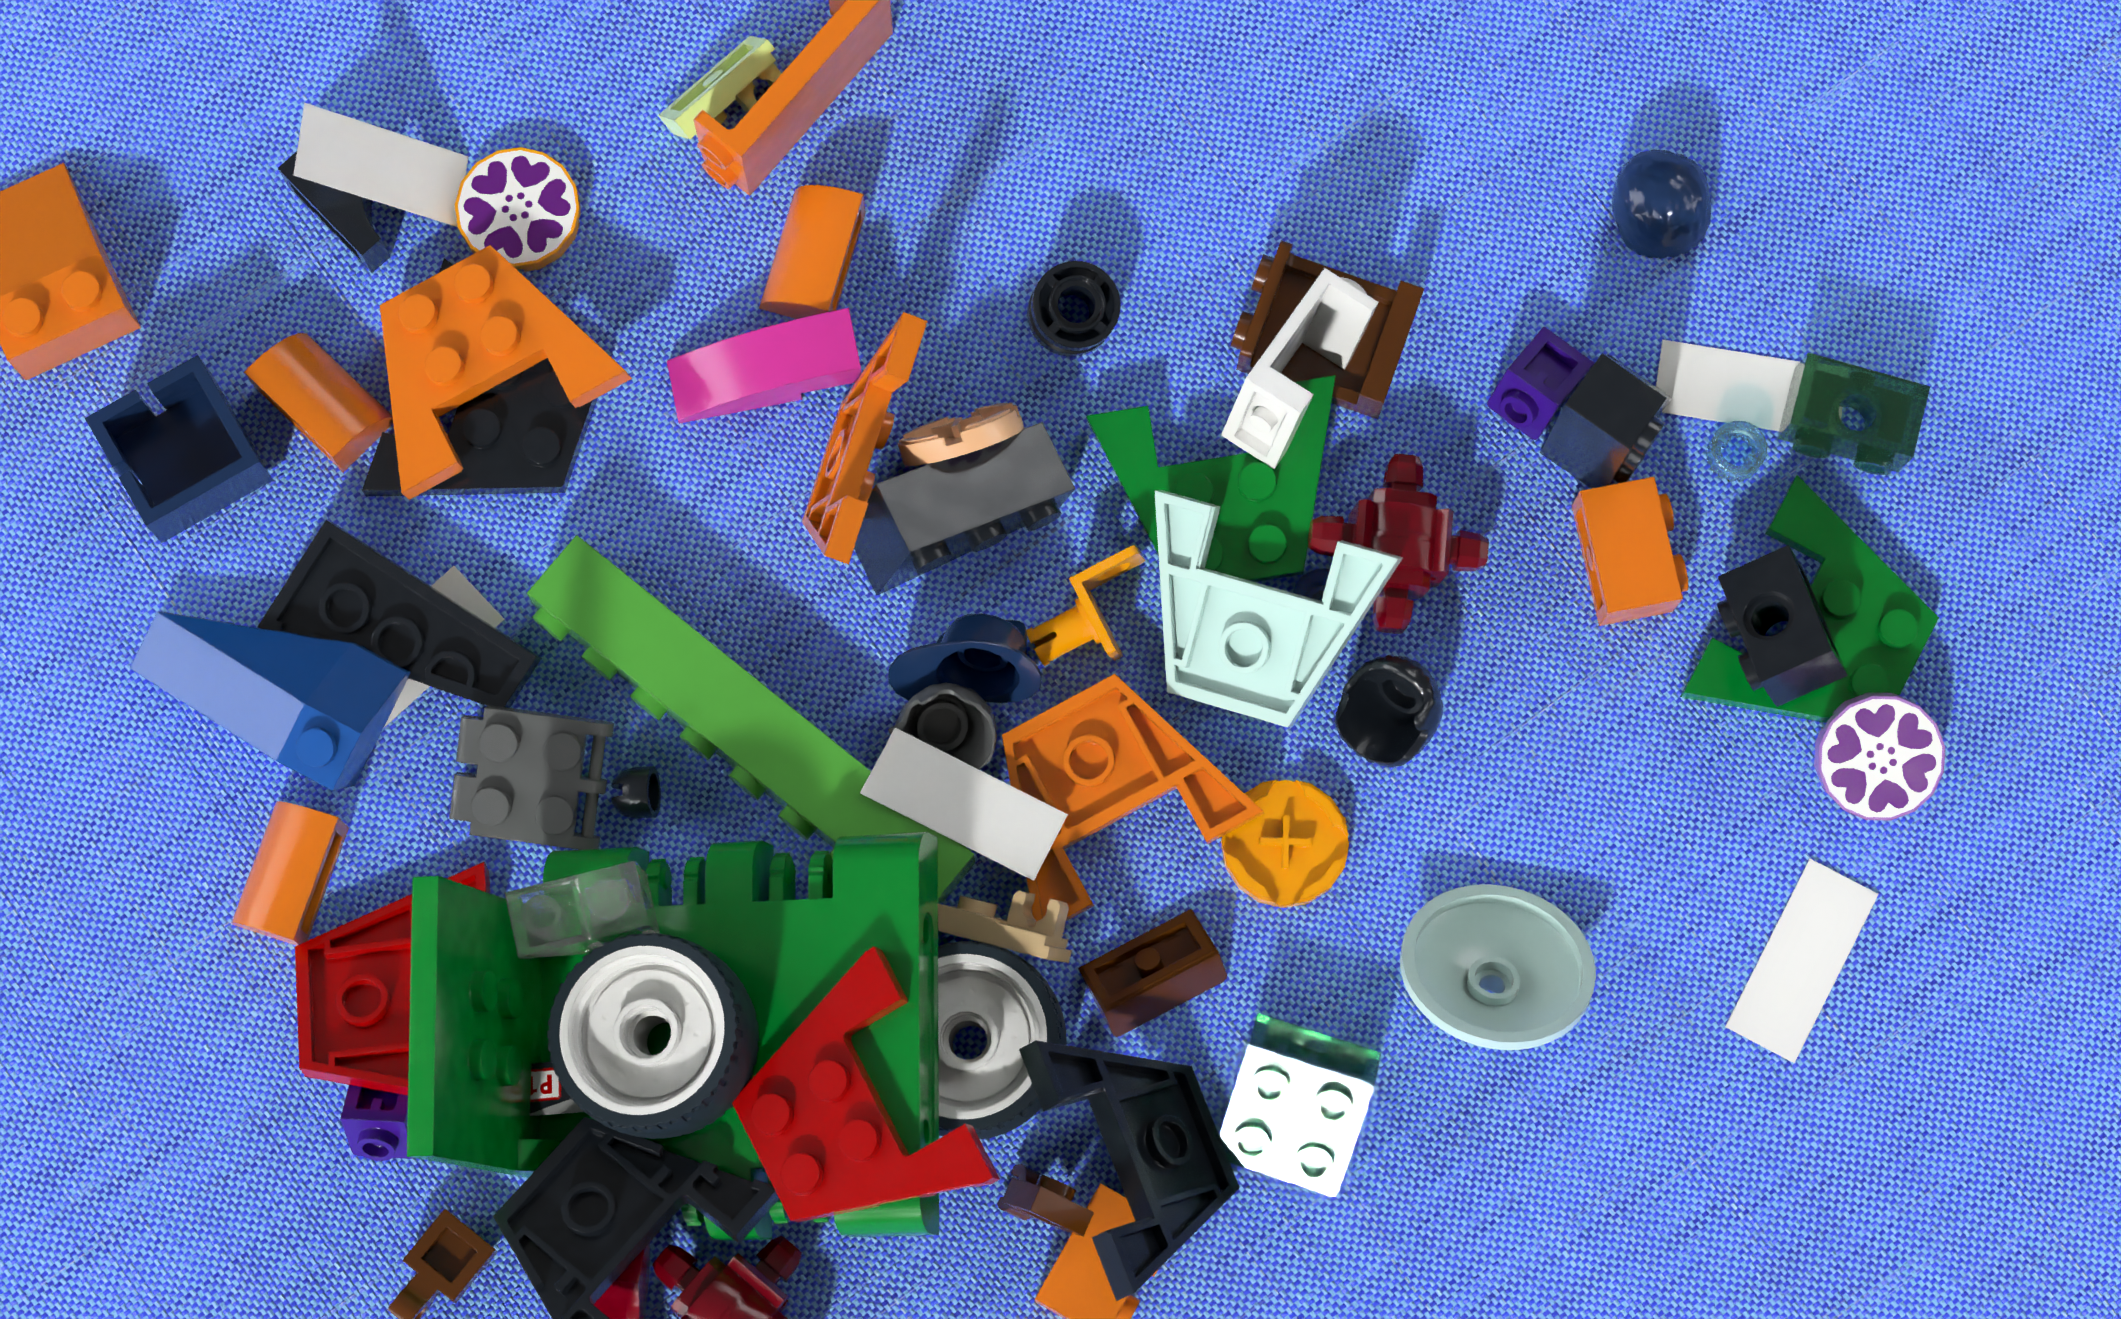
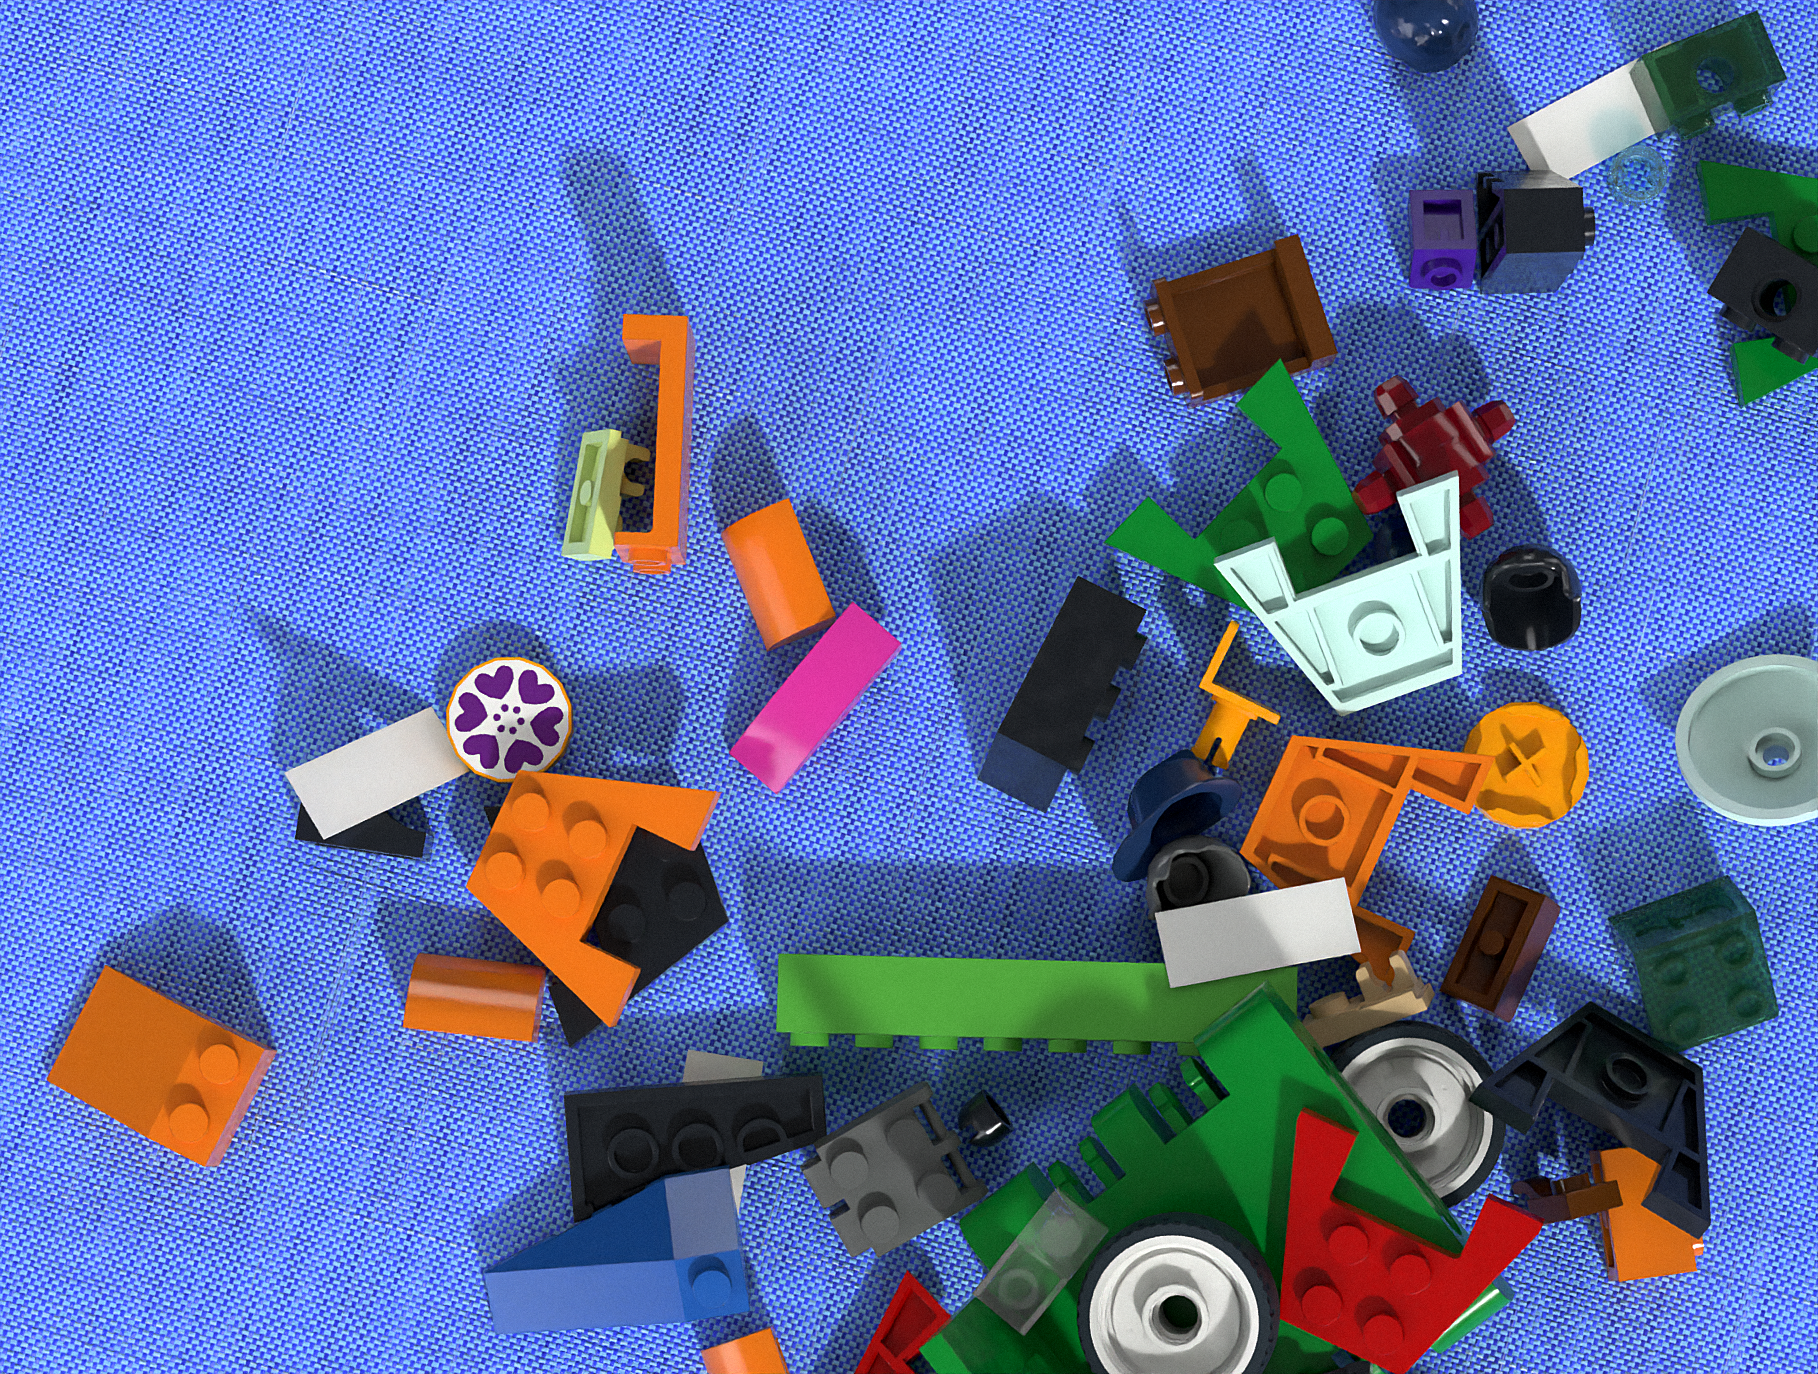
camera: 30 degrees left, 5 degrees up
(187, 457) = (405, 1129): dark blue piece -> none
(861, 424) = (943, 717): orange wing -> none
(959, 436) = (1016, 649): light nougat tile -> none
(1093, 288) = (1048, 443): black wheel -> none
(1270, 404) = (1258, 431): white panel -> none
(1629, 550) = (1617, 323): orange brick -> none

